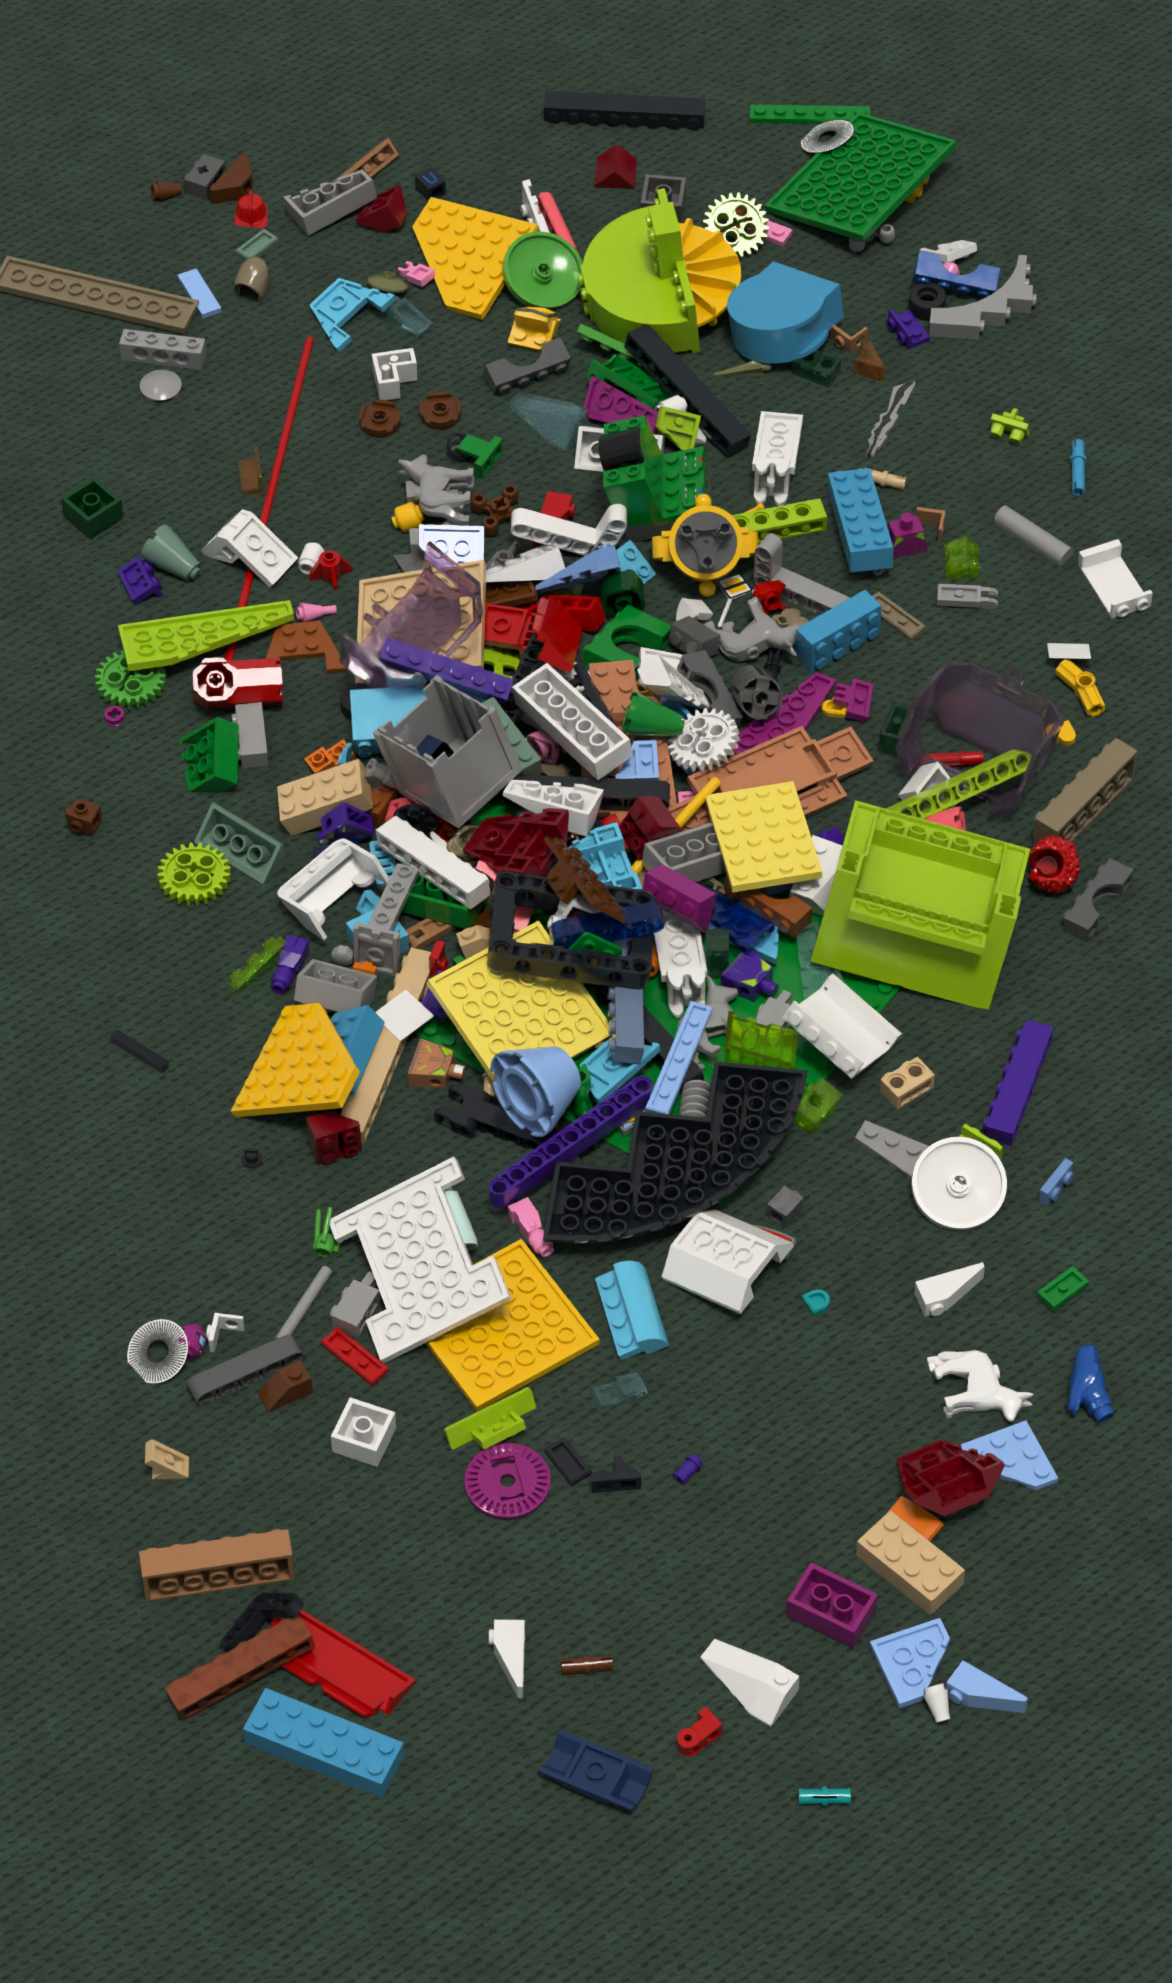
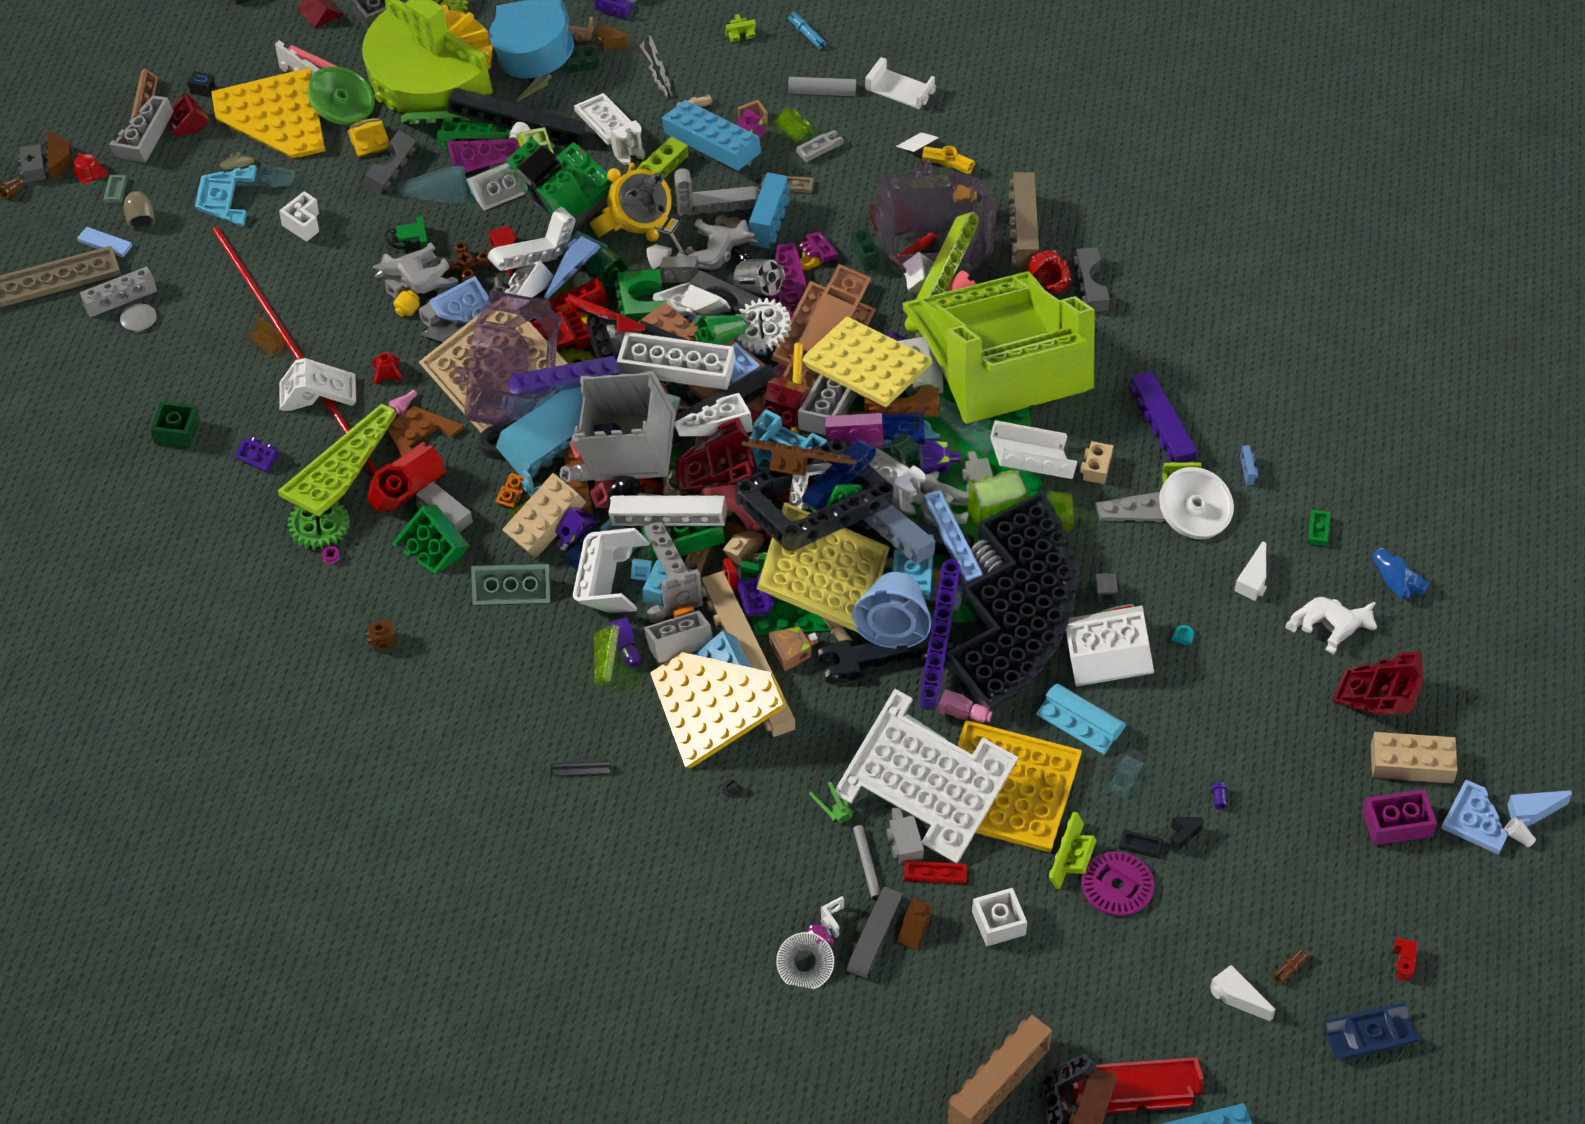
camera: 40 degrees left, 0 degrees up
(165, 1461) = (888, 1033): tan slope -> none
(170, 554) = (265, 422): sand green cone -> none
(194, 874) = (497, 630): lime gear -> none
(309, 557) = (365, 368): white brick -> none
(333, 1137) = (777, 736): dark red slope -> none
(379, 408) = (315, 259): reddish brown plate -> none
(404, 1015) = (744, 624): white sticker -> none
(417, 275) = (250, 146): bright pink plate -> none
(440, 400) = (358, 231): reddish brown plate -> none
(755, 1681) = (1404, 900): white wedge -> none
(769, 595) = (698, 211): red brick -> none
(843, 1796) = (1516, 942): teal pin -> none
(917, 1517) = (1384, 725): orange slope -> none
(1021, 1455) = (1393, 641): light blue plate -> none

